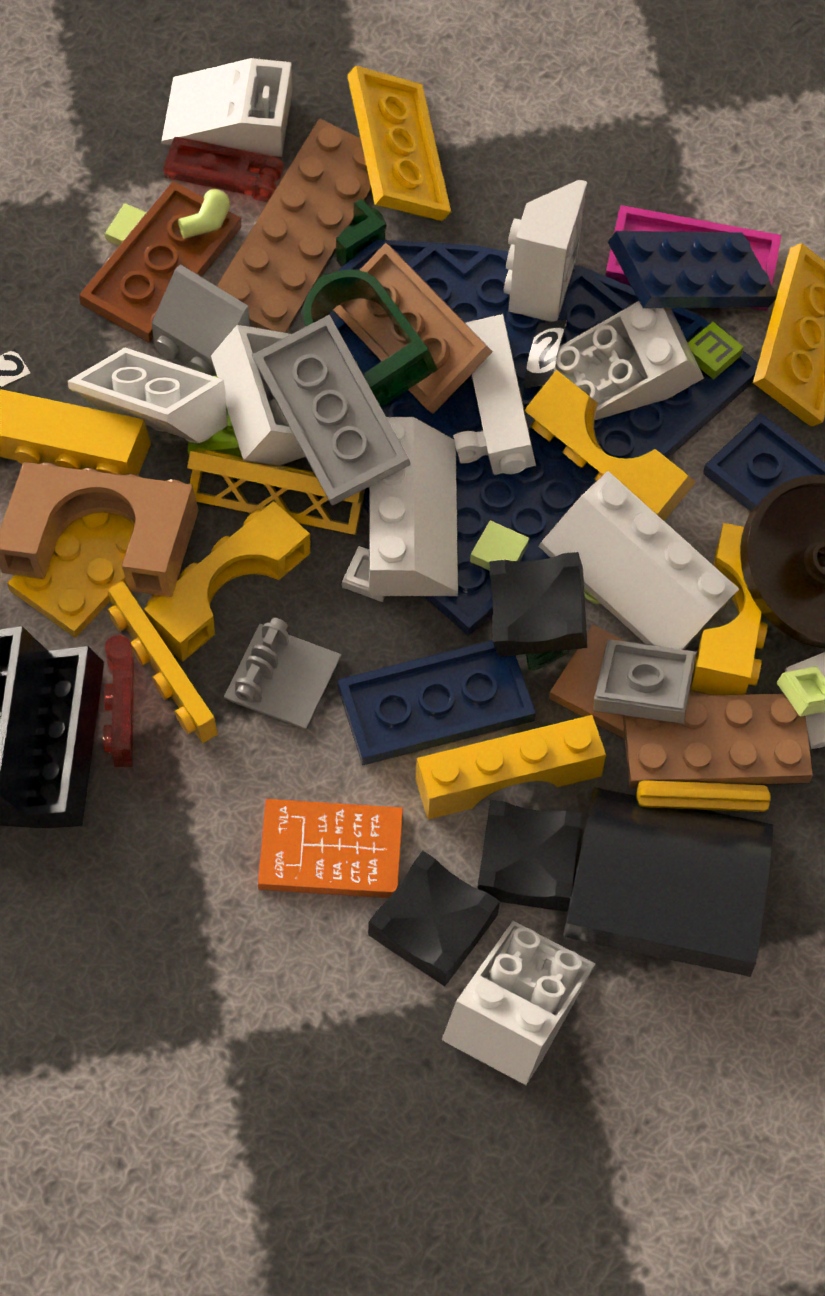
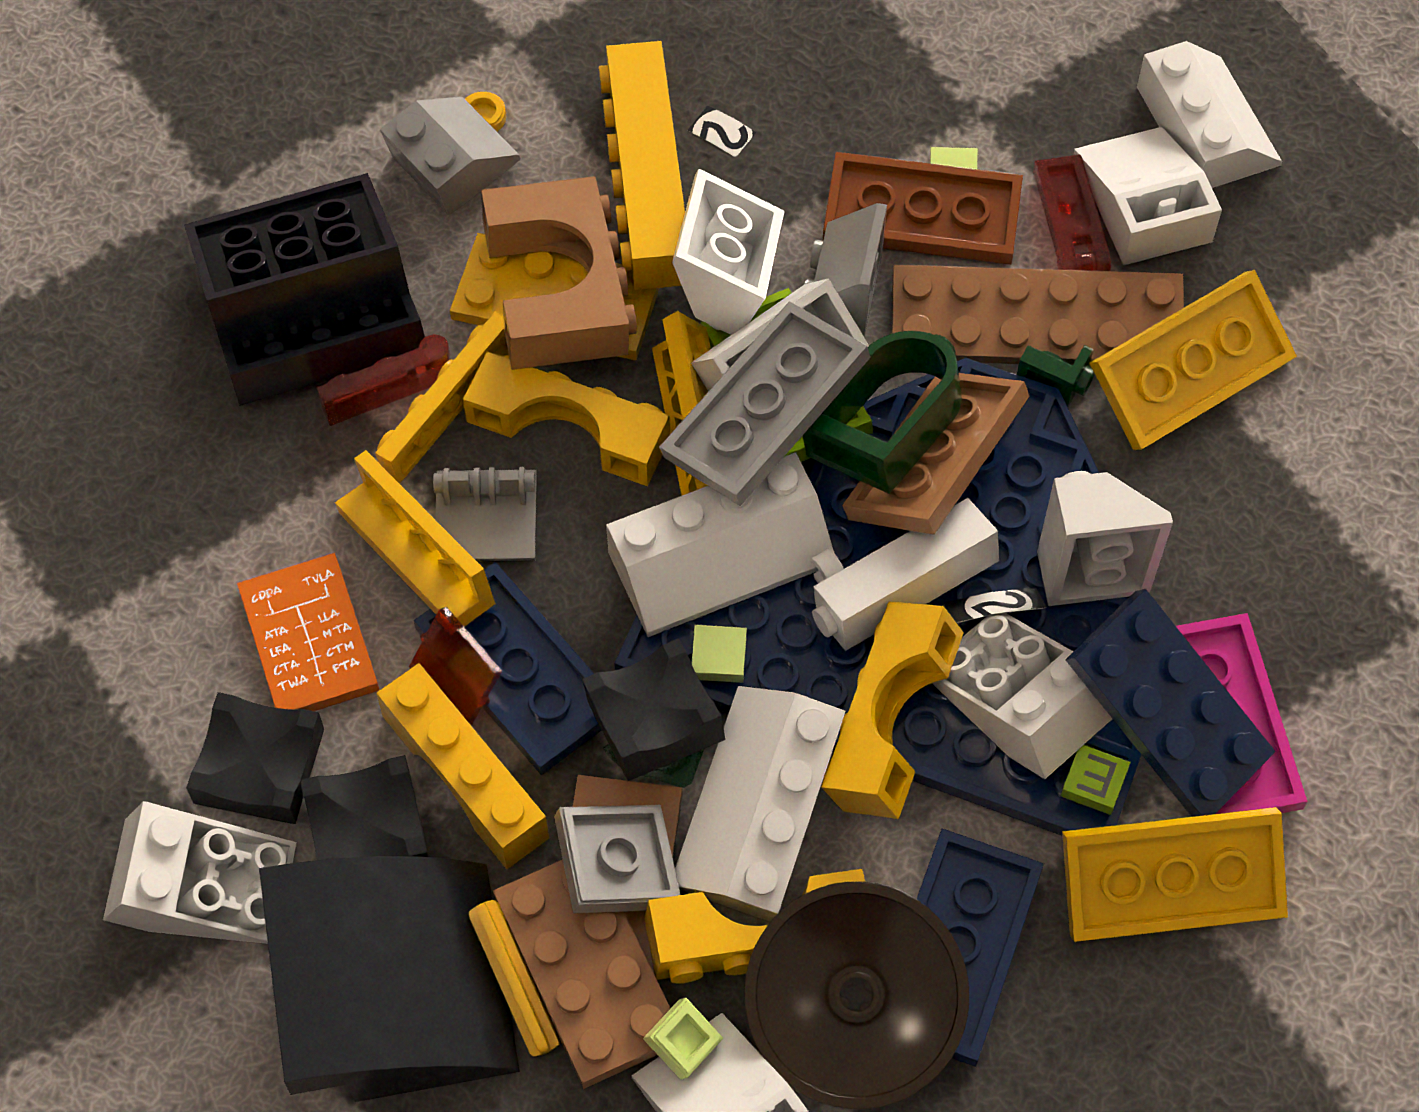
camera: 70 degrees right, 0 degrees up
(176, 45) = (1205, 112): none -> white slope
(210, 216) = (992, 221): yellowish green arm -> none
(295, 729) = (415, 544): none -> yellow fence
(418, 734) = (457, 664): none -> clear red piece

